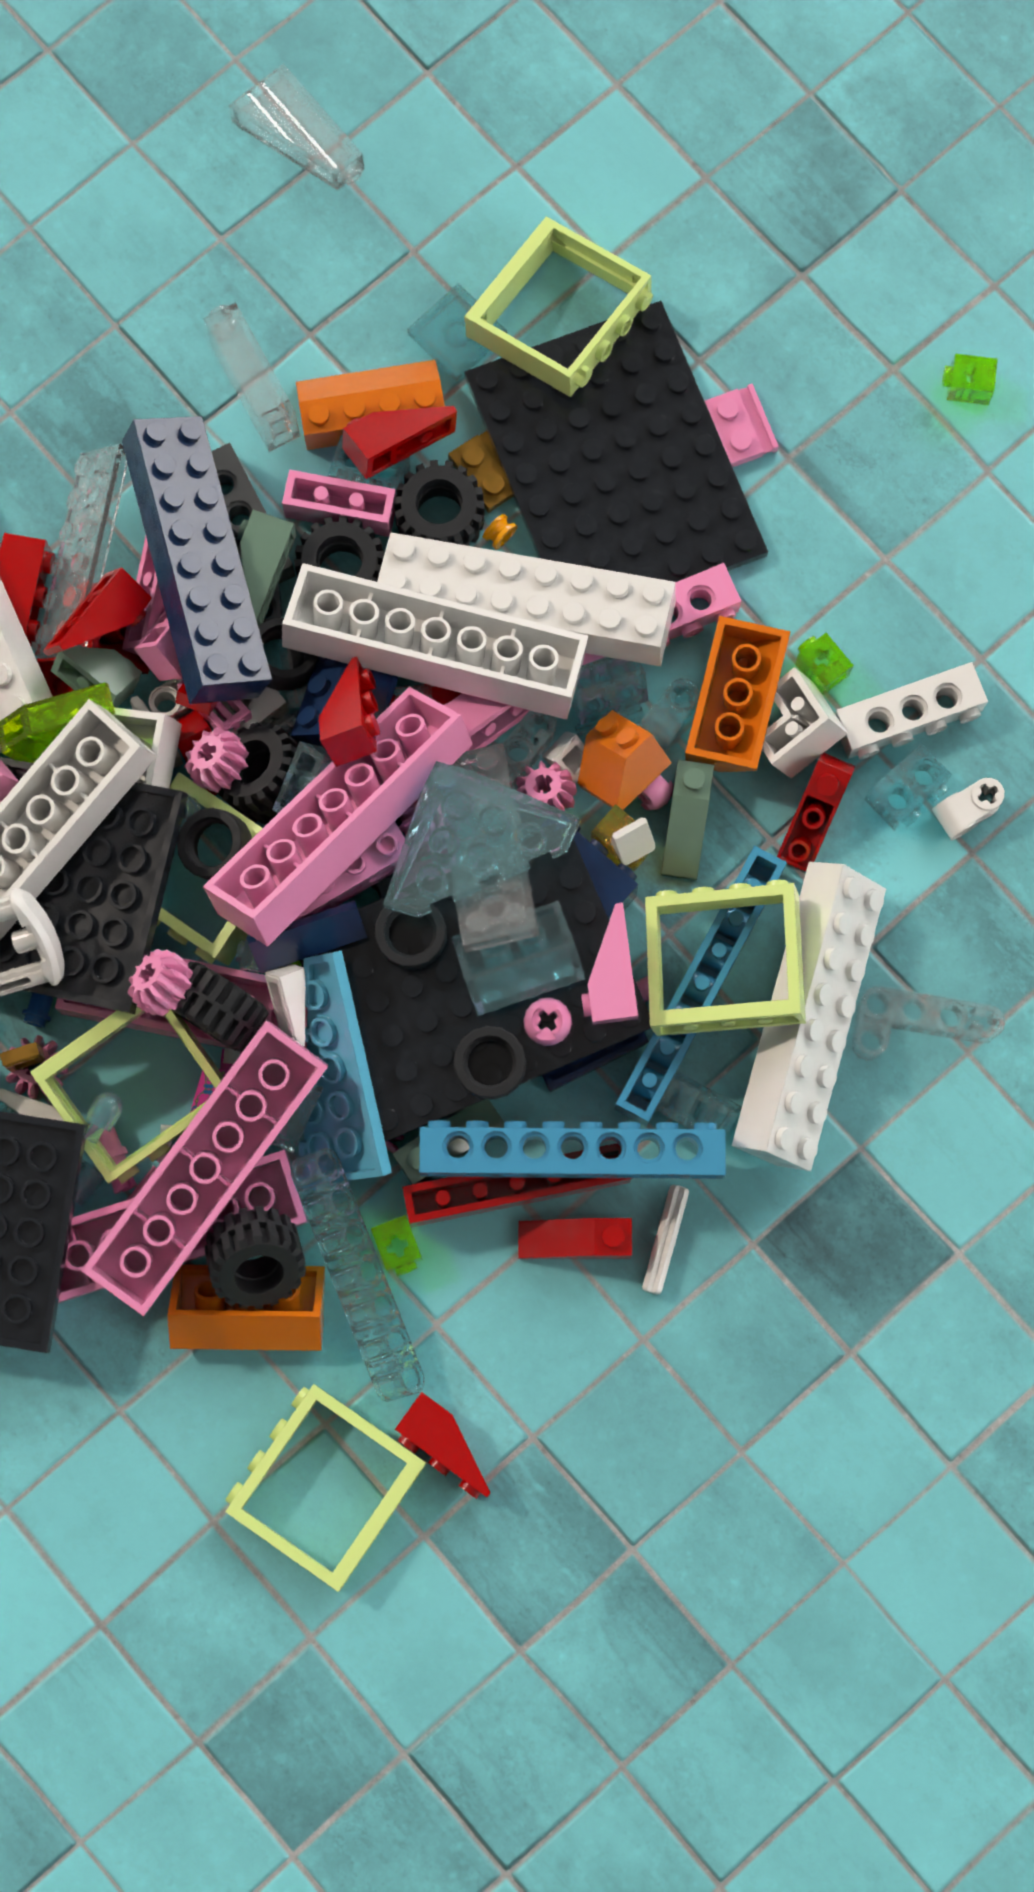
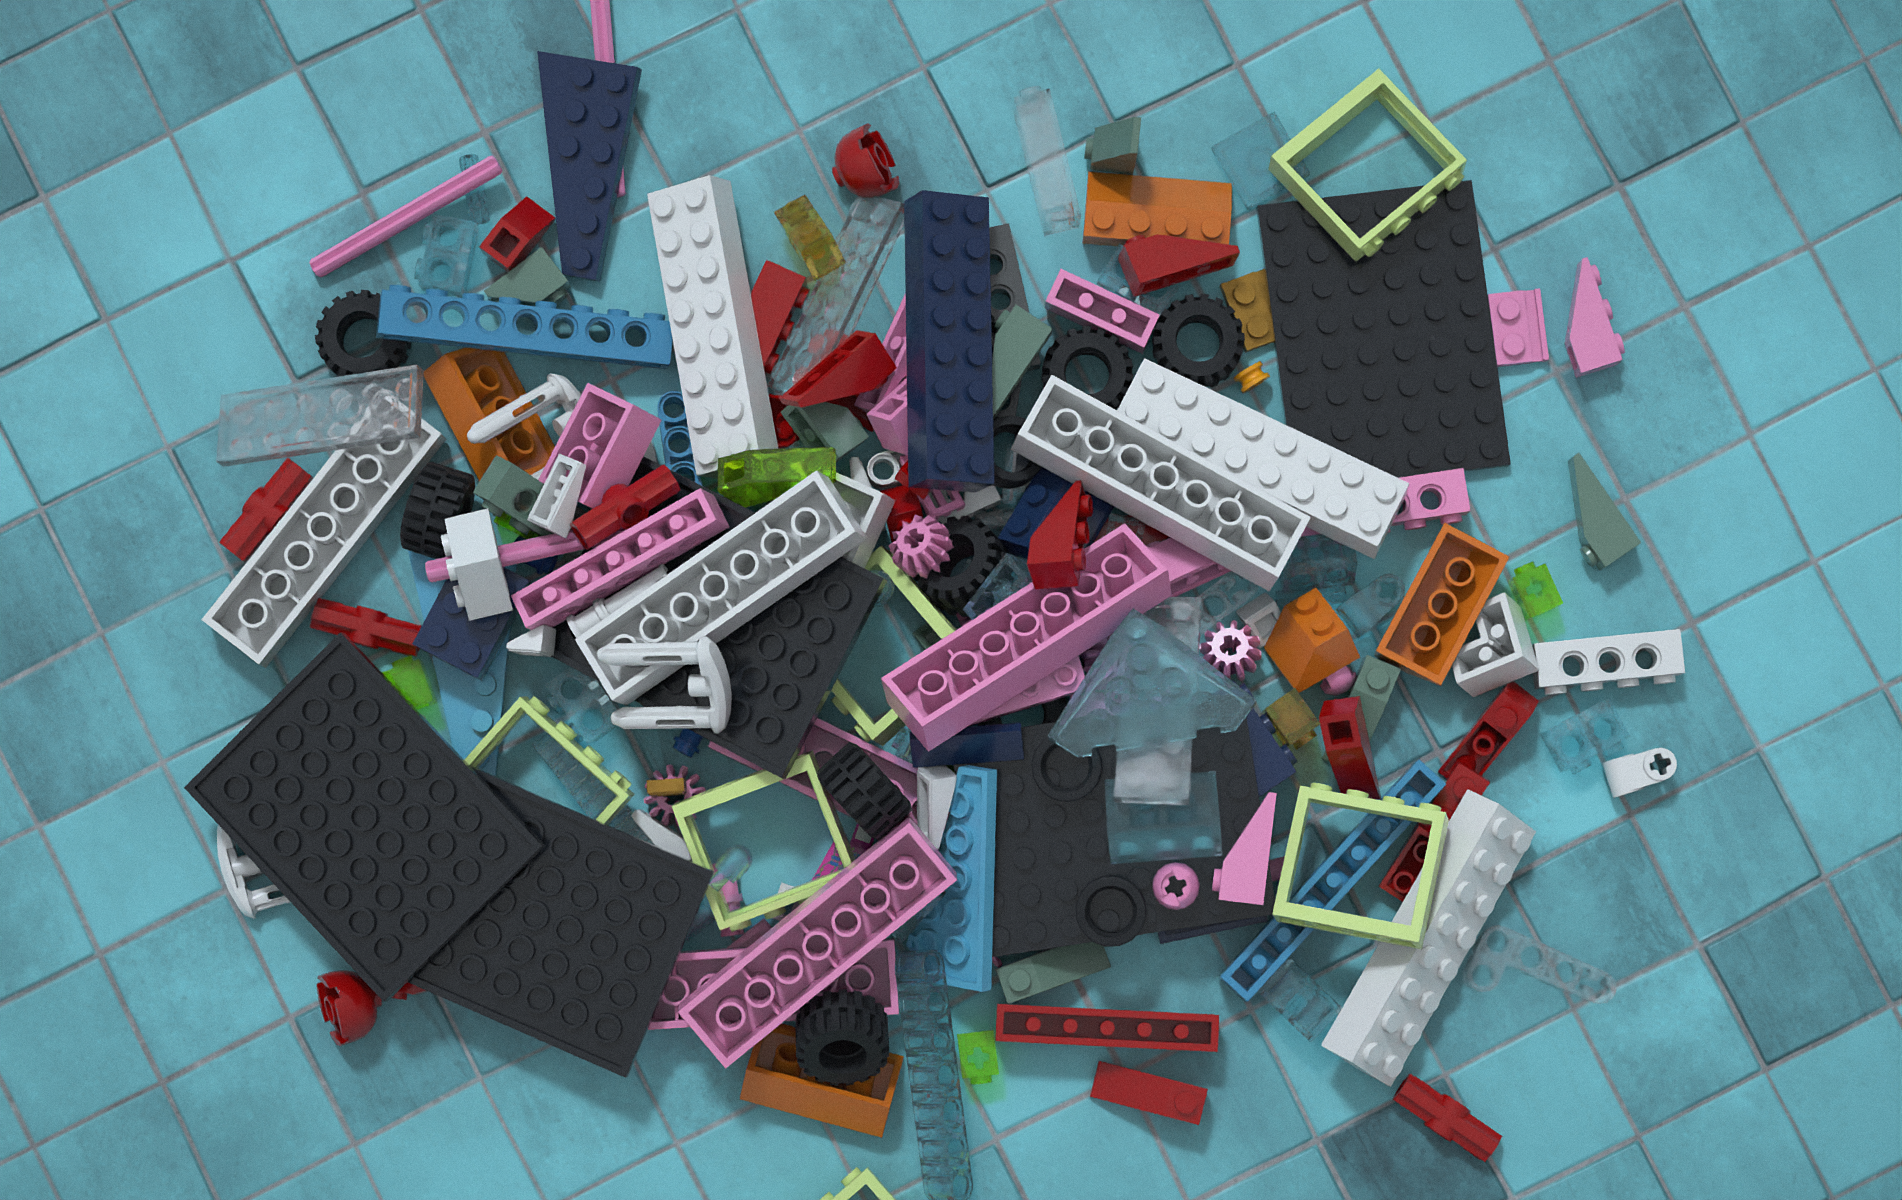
camera: 15 degrees right, 5 degrees up
(40, 501) = (810, 237): none -> clear yellow brick
(77, 422) = (864, 164): none -> red cylinder
(160, 982) = (818, 759): bright pink gear -> none
(194, 828) = (885, 606): black tyre -> none
(314, 346) = (1114, 146): none -> sand green slope
(633, 841) = (1302, 731): white slope -> none
(665, 1239) = (1235, 1114): white axle -> none
(682, 848) = (1349, 745): none -> red slope
(707, 1164) = (1293, 1057): dark azure brick -> none
(772, 943) = (1411, 856): none -> red slope
(811, 413) = (1589, 332): none -> bright pink slope
(868, 585) = (1599, 522): none -> sand green slope
(874, 1188) = (1447, 1117): none -> red piece
(982, 379) = (1770, 334): clear neon green brick -> none

